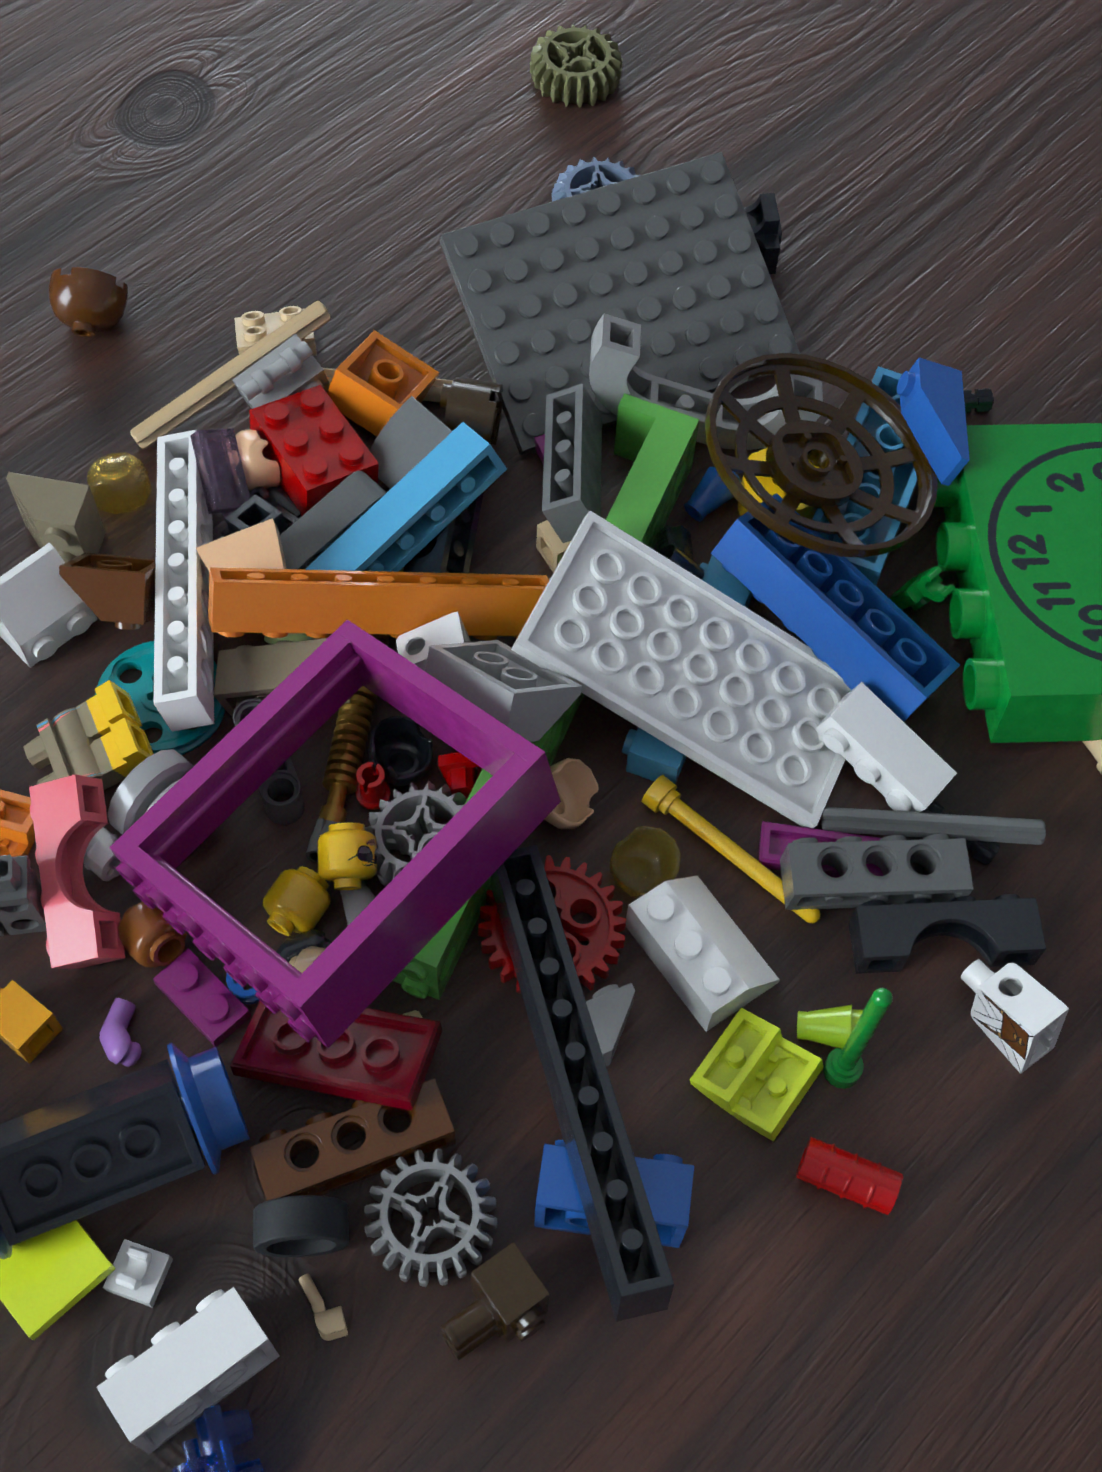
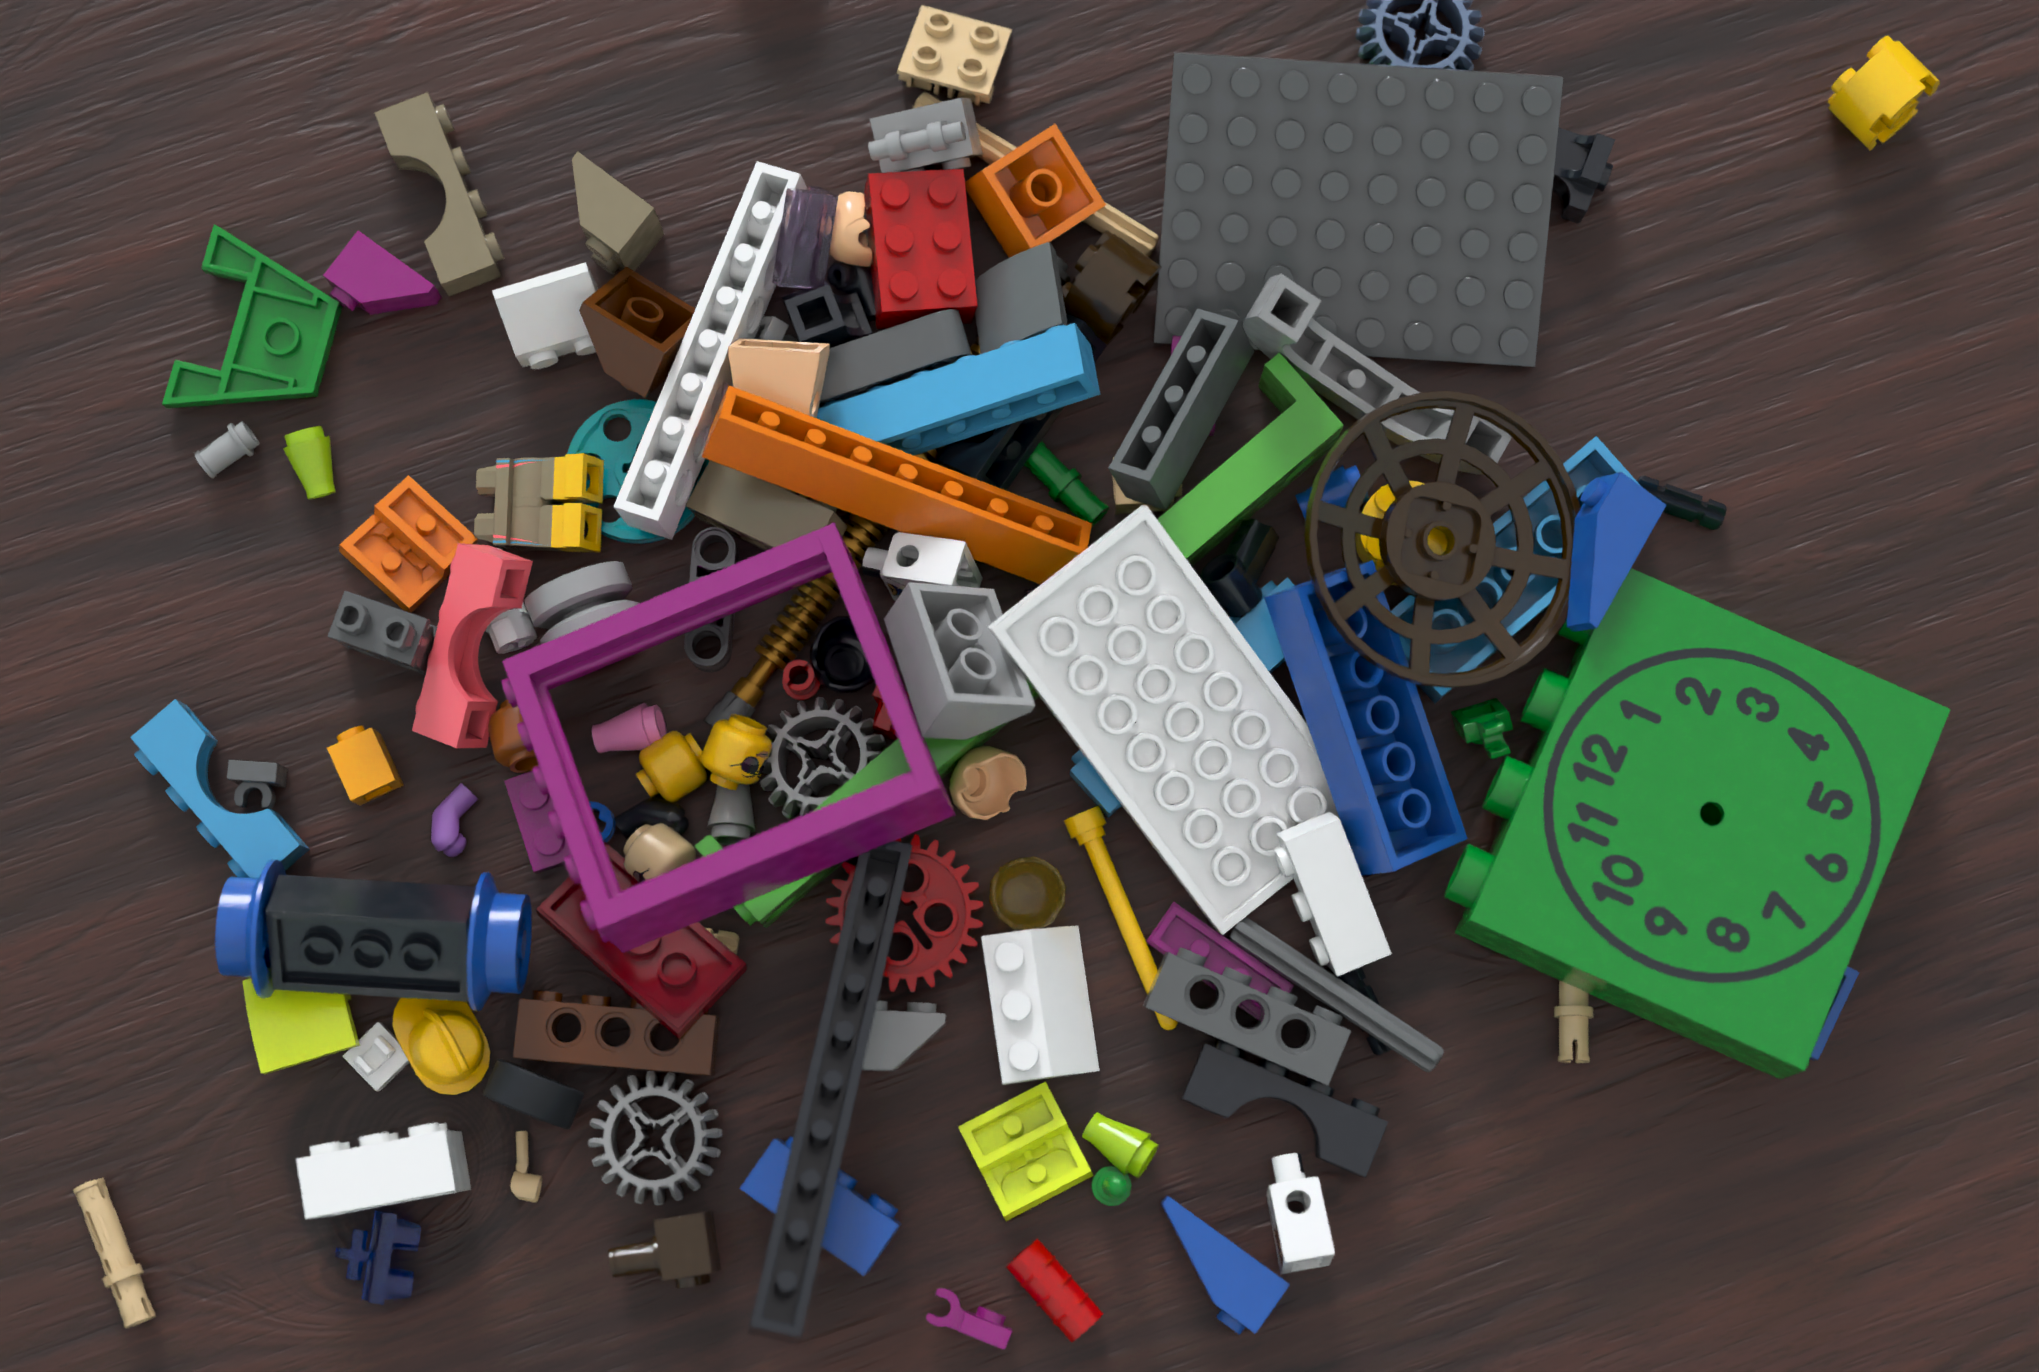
camera: 30 degrees right, 20 degrees up
(119, 482) = (701, 181): clear yellow hair -> none
(191, 1228) = (442, 1043): none -> yellow piece
(222, 379) = (876, 102): tan axle -> none
(246, 888) = (630, 730): none -> bright pink cone
(494, 562) = (1066, 485): none -> green pin
(804, 1239) = (984, 1325): none -> magenta plate
(924, 116) = (1881, 93): none -> yellow brick
(982, 1087) = (1230, 1276): none -> blue slope

